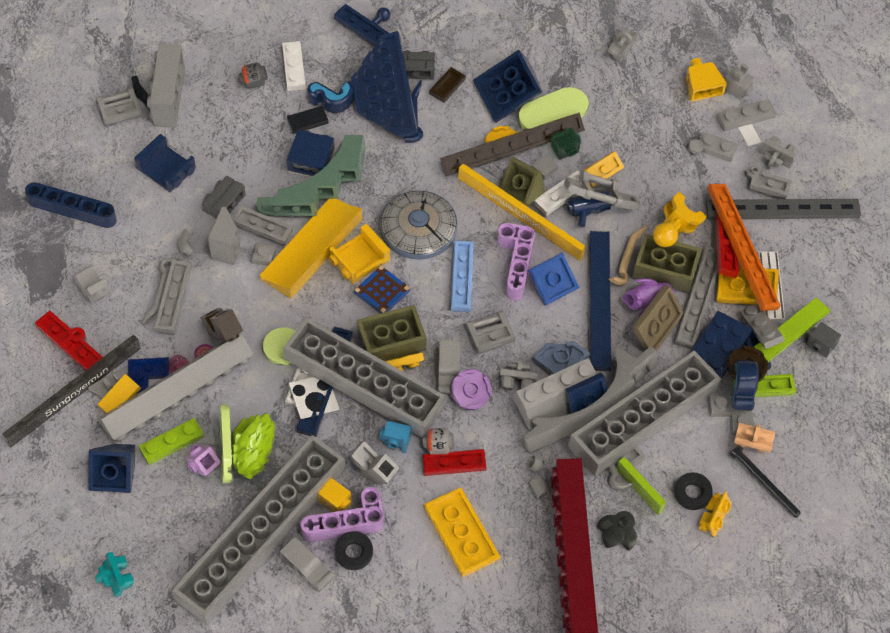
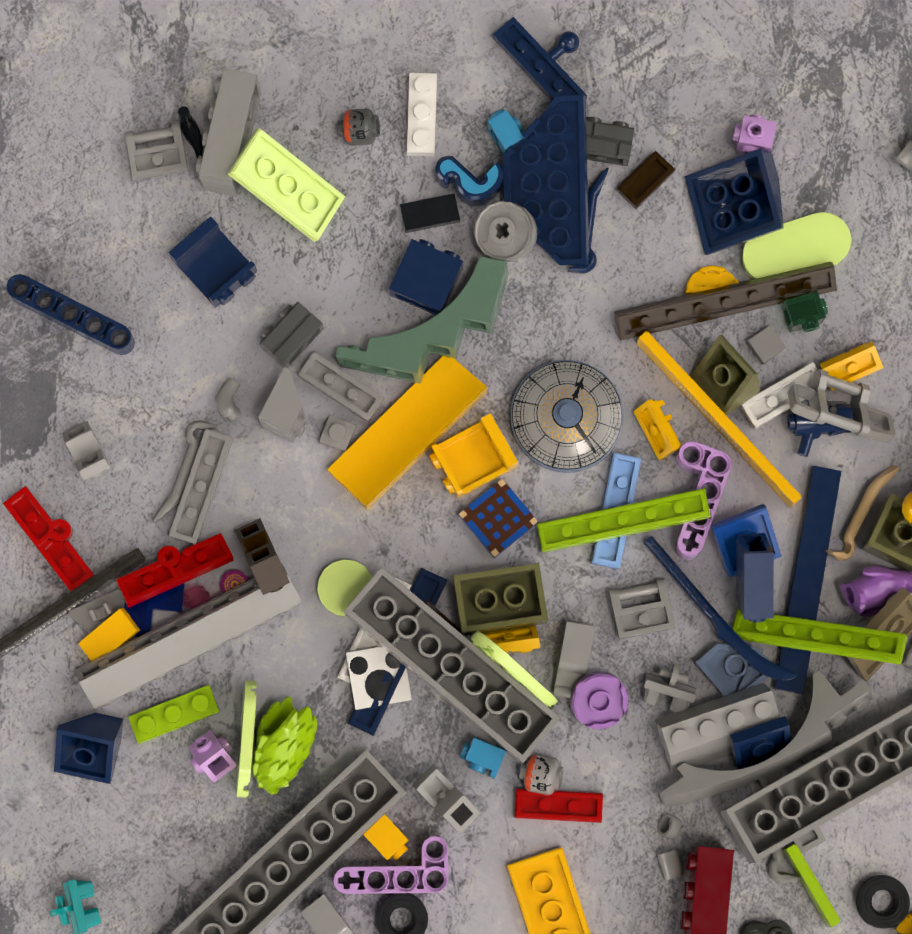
camera: 10 degrees right, 20 degrees up
(160, 347) = (174, 569): none -> red hinge
(209, 108) = (286, 185): none -> yellowish green tile
(349, 65) = (504, 130): none -> dark azure brick
(360, 110) = (490, 232): none -> light grey wheel
(401, 360) = (509, 665): none -> yellowish green tile
(468, 277) = (624, 520): none -> lime tile
(481, 222) = (657, 428): none -> yellow plate
(512, 44) = (754, 134): none -> lavender brick
(548, 334) = (723, 630): none -> dark blue piece
(563, 293) = (754, 576): none -> dark blue brick
(614, 323) = (823, 637): none -> lime tile

